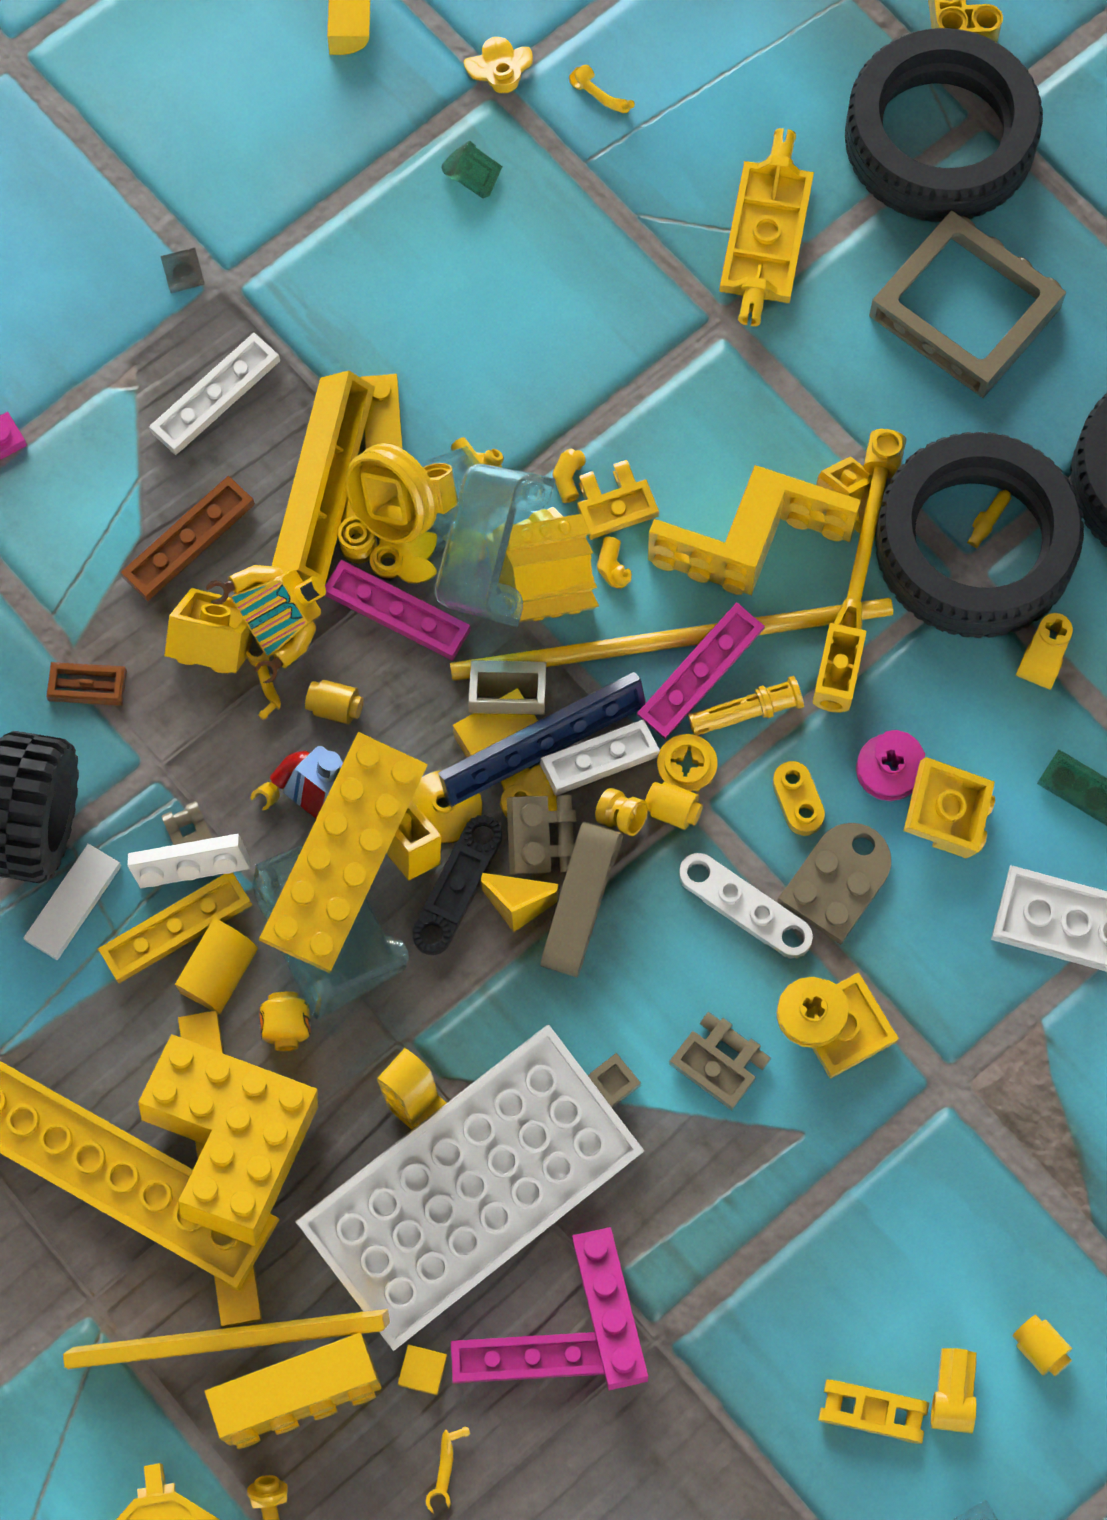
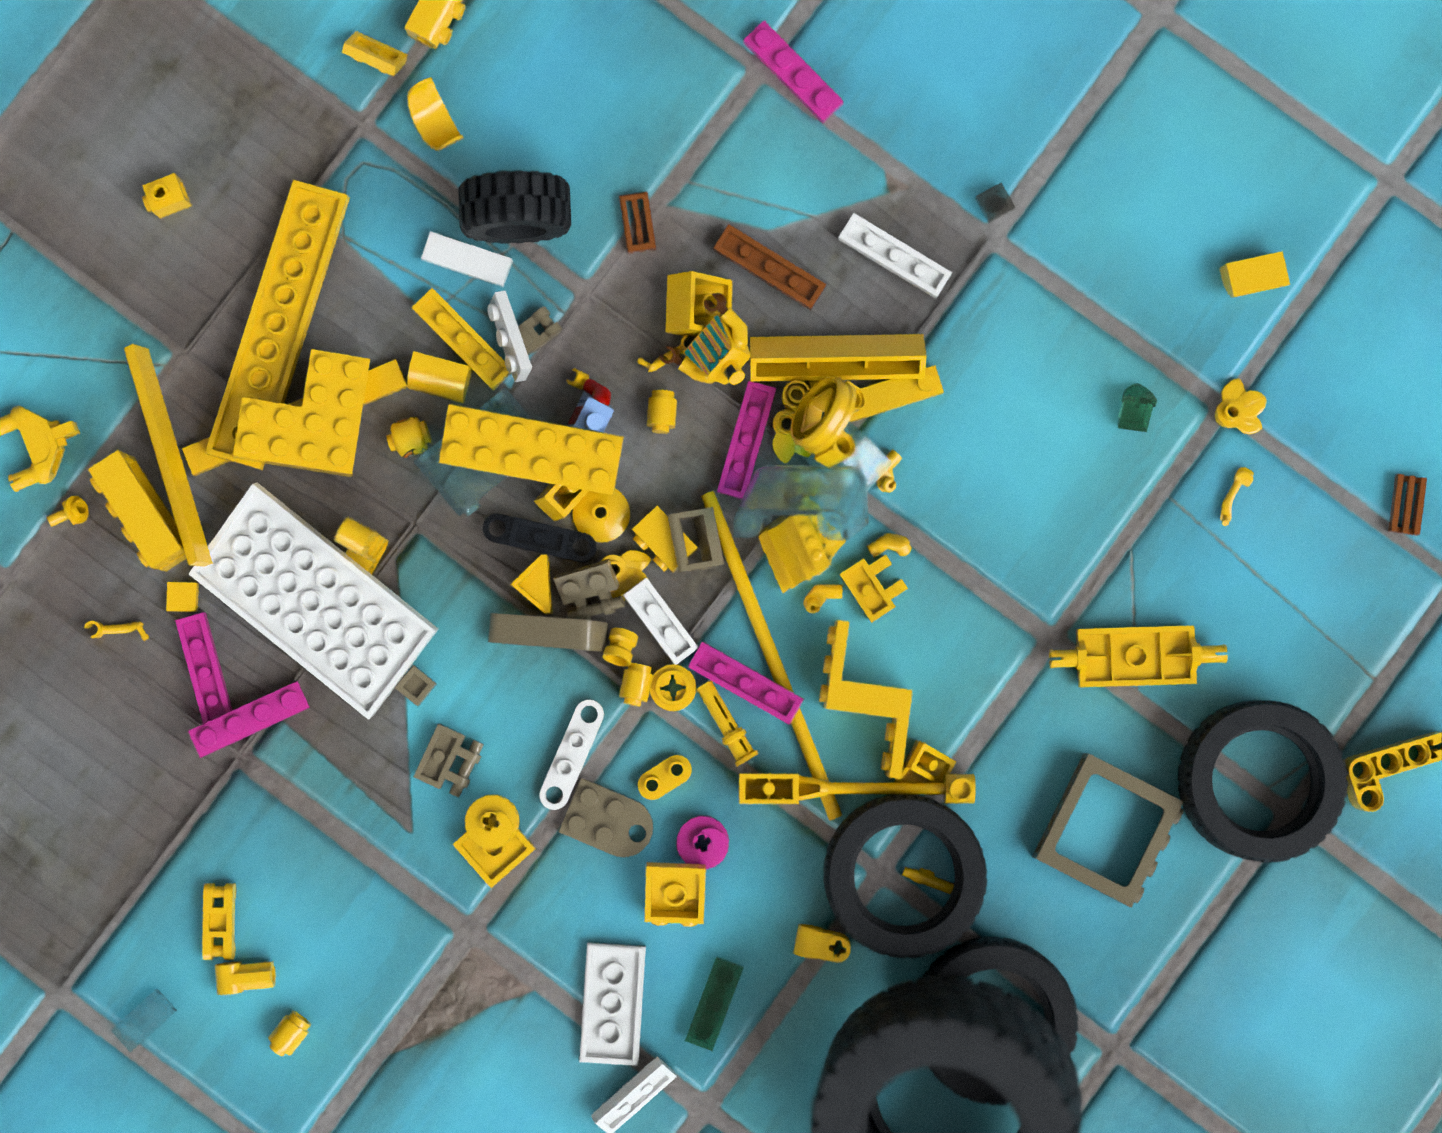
camera: 75 degrees right, 15 degrees up
(542, 739) = (662, 576): dark blue tile -> none

